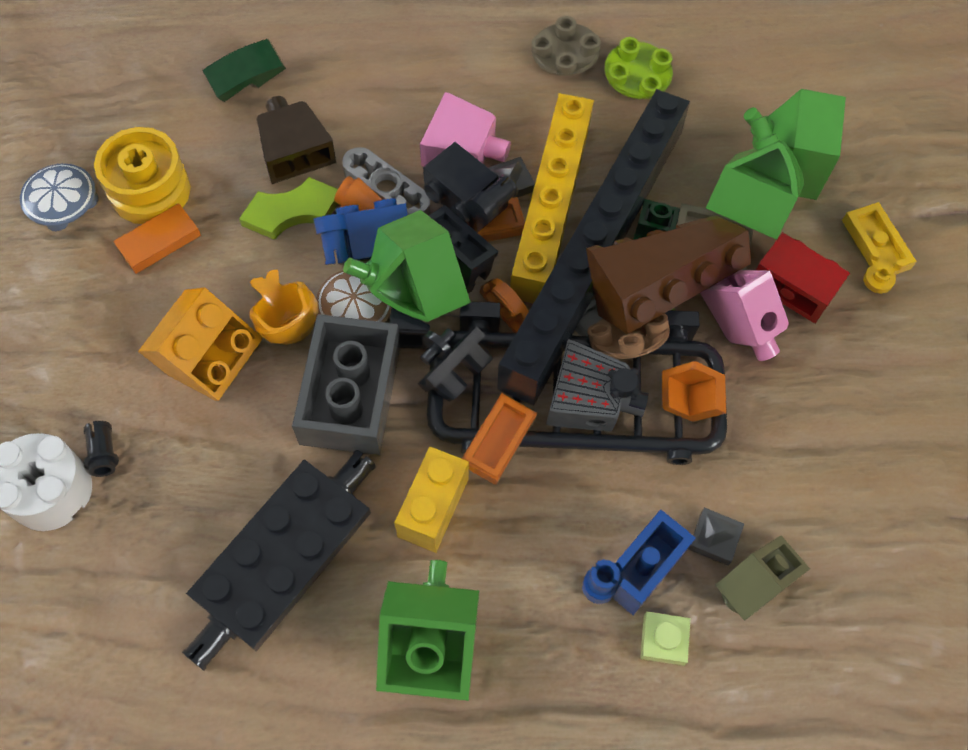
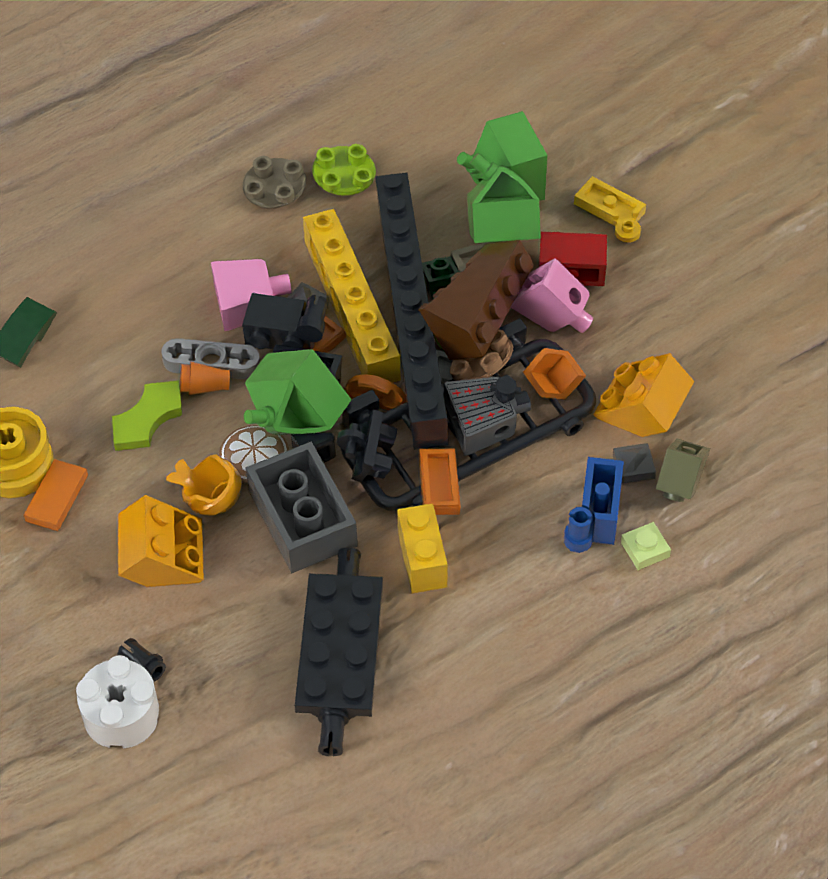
camera: 30 degrees left, 10 degrees down
(293, 140) = (110, 363): dark brown torso -> none
(355, 231) = (227, 399): blue hinge -> none
(427, 637) = (491, 626): bright green piece -> none
(777, 470) = (645, 395): none -> light orange slope

